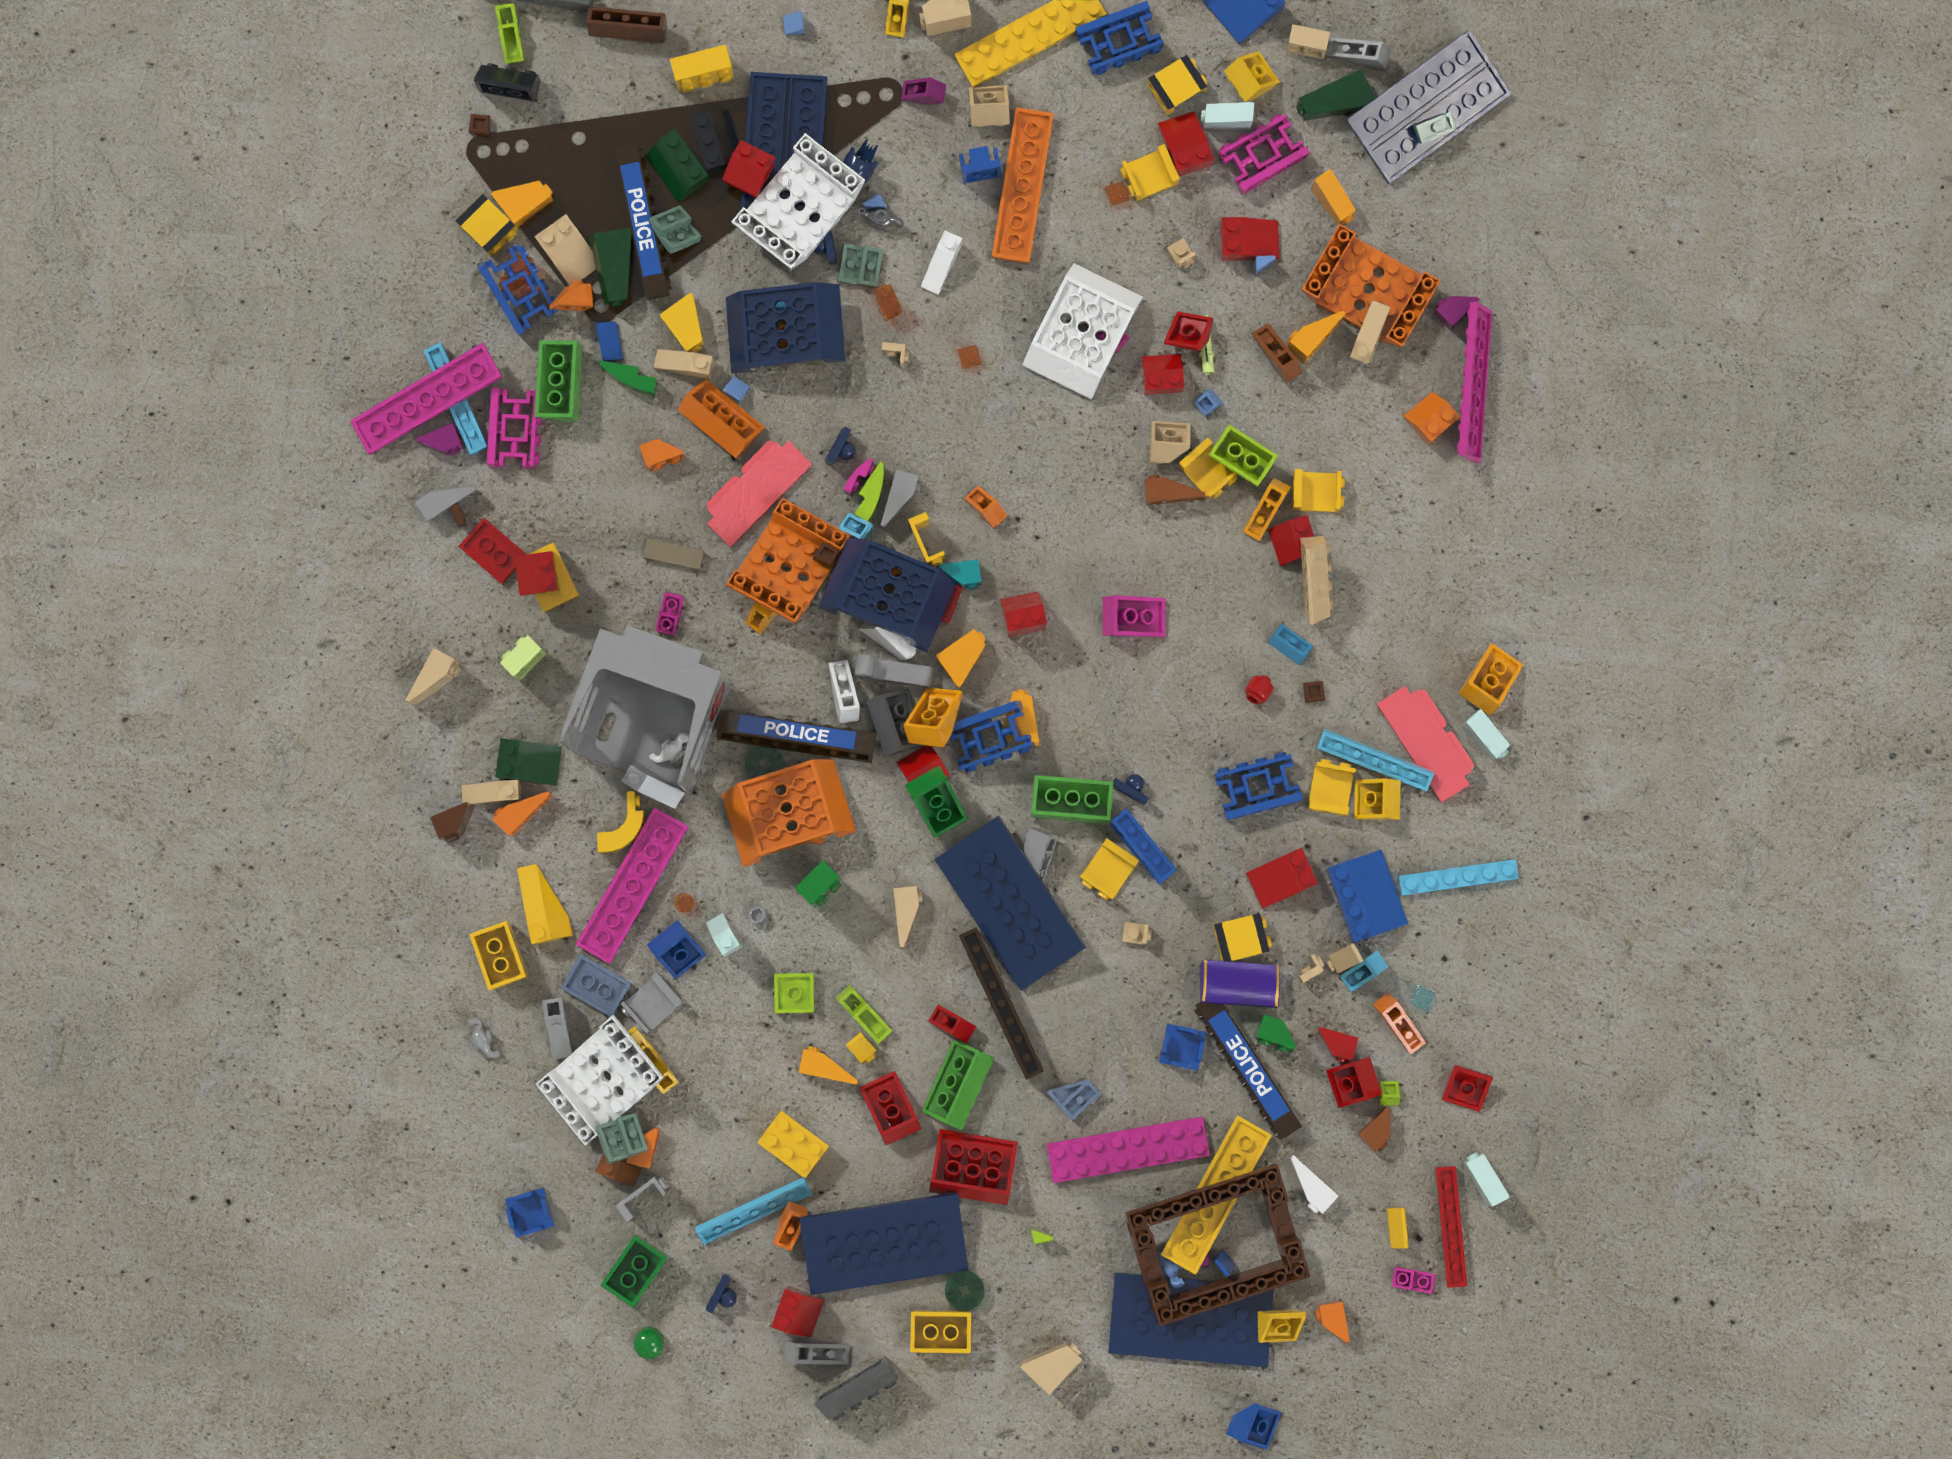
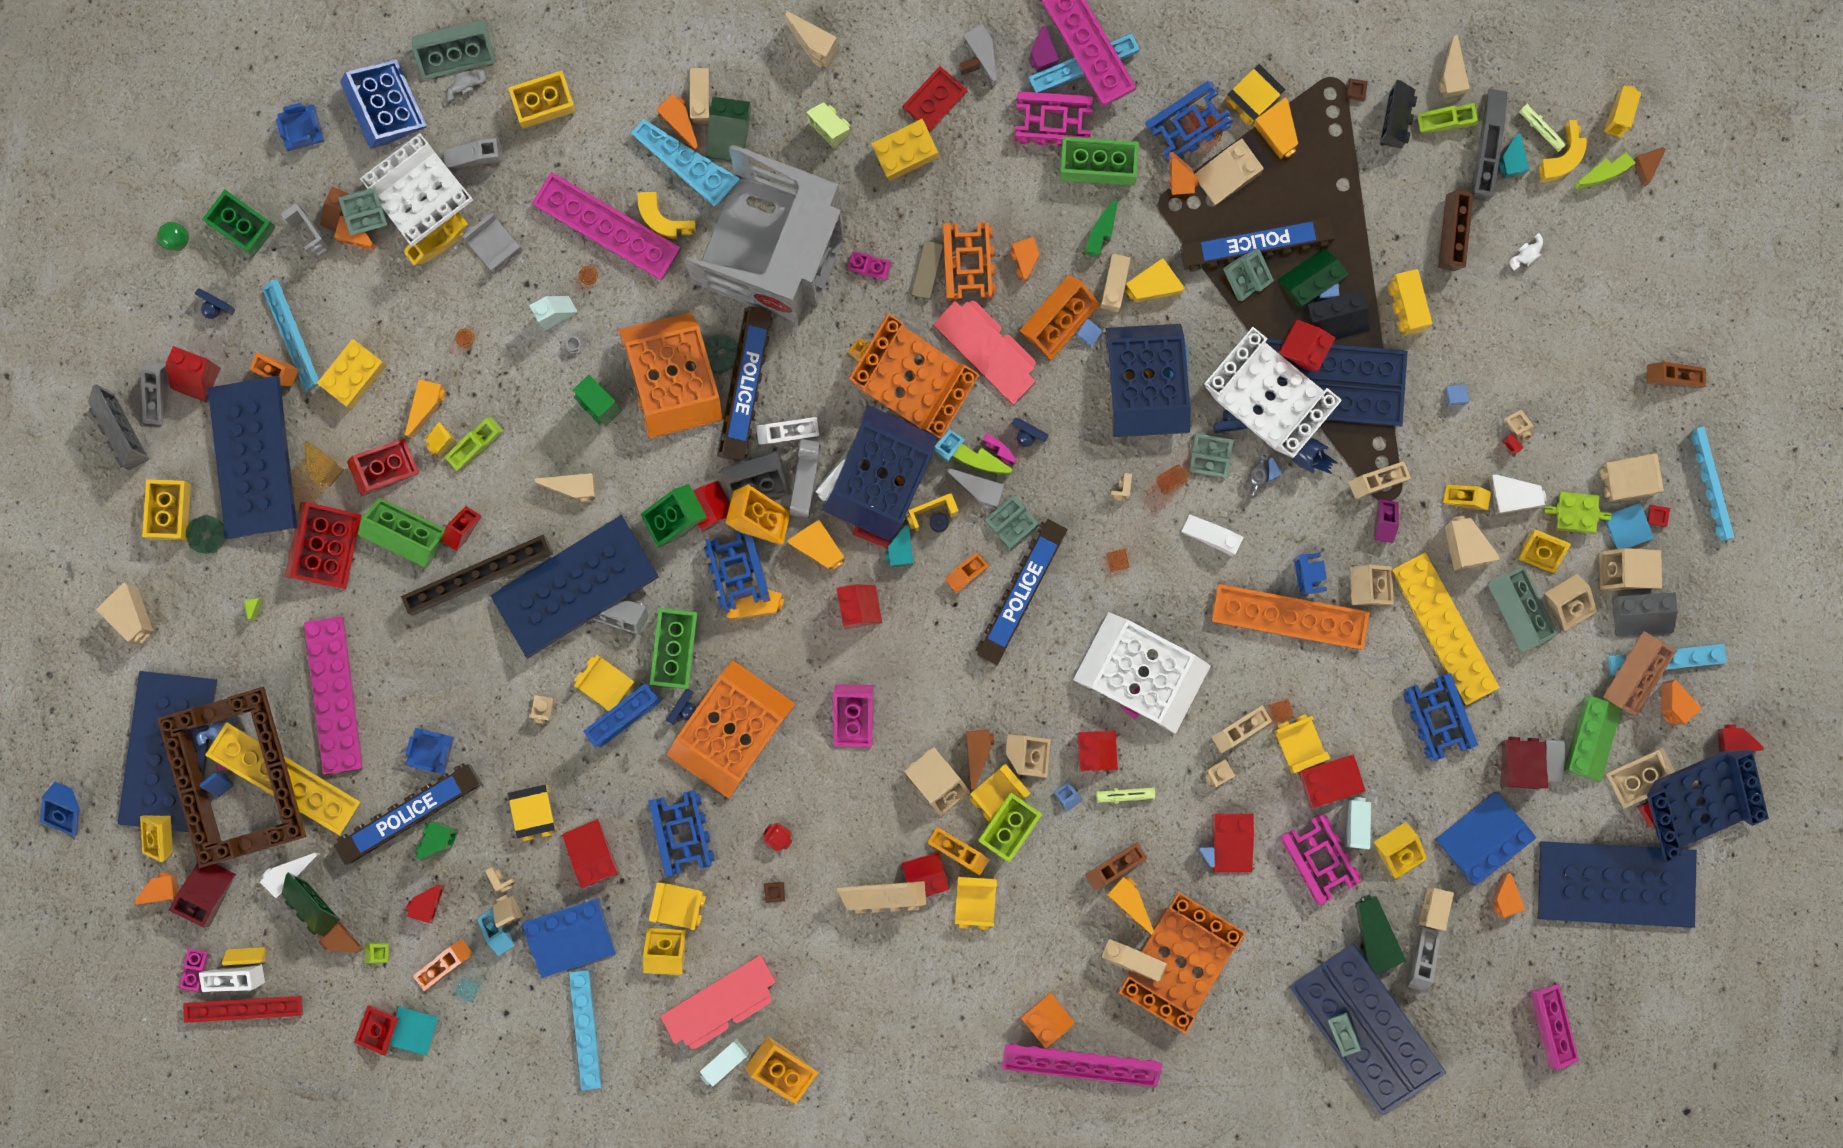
camera: 90 degrees right, 0 degrees up
(444, 1052) = (453, 49): none -> sand green slope
(452, 822) = (669, 56): reddish brown slope -> none
(463, 27) = (1454, 76): none -> tan slope
(503, 1125) = (382, 103): none -> blue slope
(536, 573) = (906, 136): red slope -> none
(543, 911) = (587, 141): yellow wedge -> none
(573, 792) = (697, 171): none -> medium azure wing
(596, 985) = (511, 191): sand blue plate -> none
(609, 341) = (1138, 211): blue slope -> none
(612, 262) = (1216, 213): dark green slope -> none
(652, 785) = (703, 241): light grey slope -> none
(665, 527) = (953, 262): none -> orange fence
(671, 749) = (733, 261): white piece -> none
(676, 949) = (542, 266): blue slope -> none
(693, 145) = (1329, 293): none -> medium blue slope
(752, 1028) = (465, 338): none -> clear orange plate
(794, 993) = (497, 378): lime plate -> none
(826, 555) = (920, 415): reddish brown tile -> none
(883, 98) = (1379, 480): none -> tan slope
(891, 1170) = (322, 468): none -> clear yellow slope
(933, 463) = (1012, 522): none -> sand green slope
(934, 536) = (939, 522): none -> tile
(1004, 450) = (1021, 593): none -> brick
(1074, 1097) = (385, 644): sand blue wing -> none
(1123, 730) = (720, 756): none -> orange slope
(1137, 232) = (1241, 729): none -> tan slope
(1177, 83) = (1393, 774): yellow panel -> none
(1189, 331) = (1138, 778): red slope -> none
(1197, 531) = (937, 781): none -> tan slope
(1239, 983) = (486, 808): dark purple slope -> none
(1290, 644) = (823, 870): dark azure slope -> none
(1333, 197) = (1272, 928): light orange slope -> none
(1336, 1273) = (202, 894): none -> dark red slope
(1345, 1161) = (309, 905): none -> dark green slope
(1354, 1082) = (387, 918): red slope -> none
(1375, 760) = (703, 951): medium azure plate -> none
(1421, 1238) = (232, 978): none -> white slope
(1453, 309) = (1157, 1047): magenta slope -> none
(1465, 1050) = (413, 1030): none -> teal slope
(1485, 1179) = (284, 1045): light aqua slope -> none

